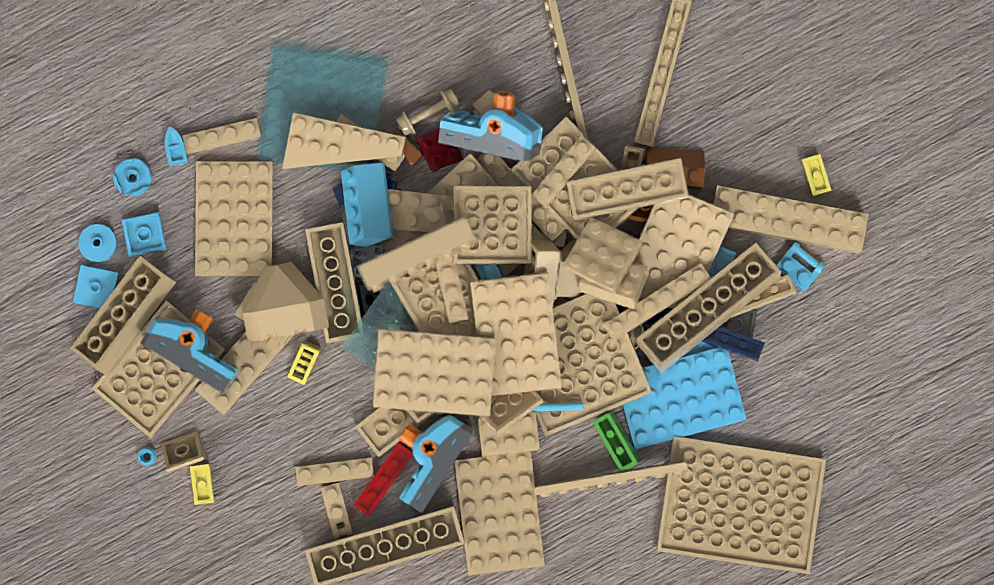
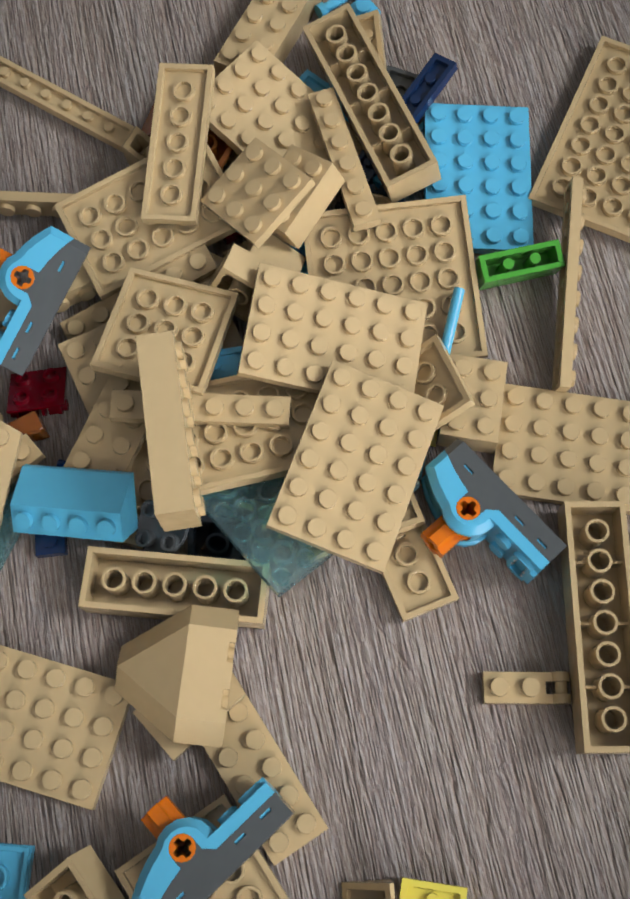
camera: 70 degrees left, 15 degrees down
(311, 347) = (261, 657): light yellow slope -> none
(334, 471) = (463, 675): tan plate -> none
(383, 479) = (495, 601): red plate -> none
(564, 171) = (126, 223): tan plate -> none

